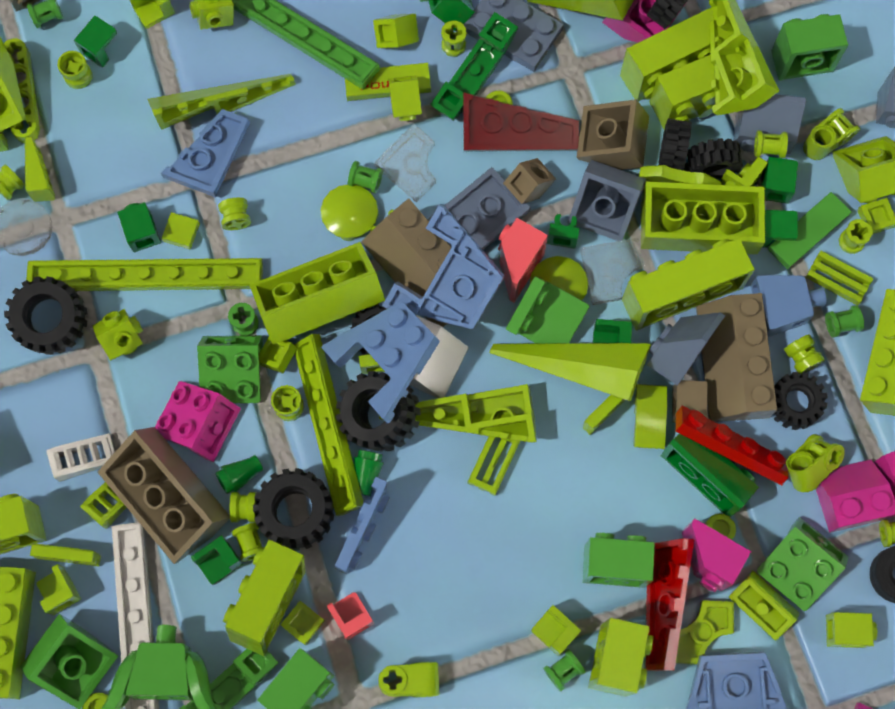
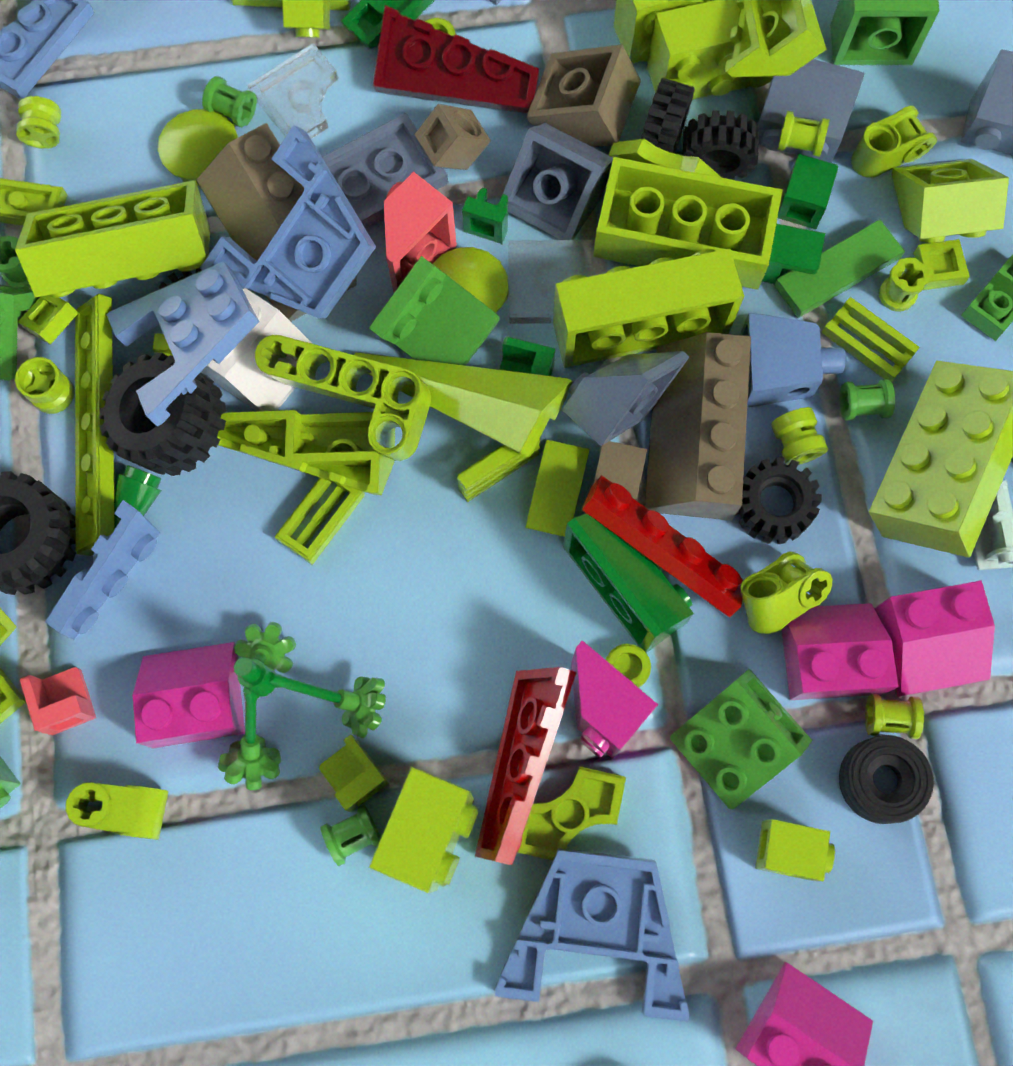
camera: 10 degrees right, 0 degrees up
(437, 597) = (188, 697): none -> dark pink slope
(480, 562) = (257, 675): none -> bright green plant
(497, 372) = (342, 384): none -> lime beam
(618, 561) = (459, 685): bright green brick -> none
(748, 176) = (766, 174): lime bracket -> none
(764, 605) = (672, 791): lime slope -> none

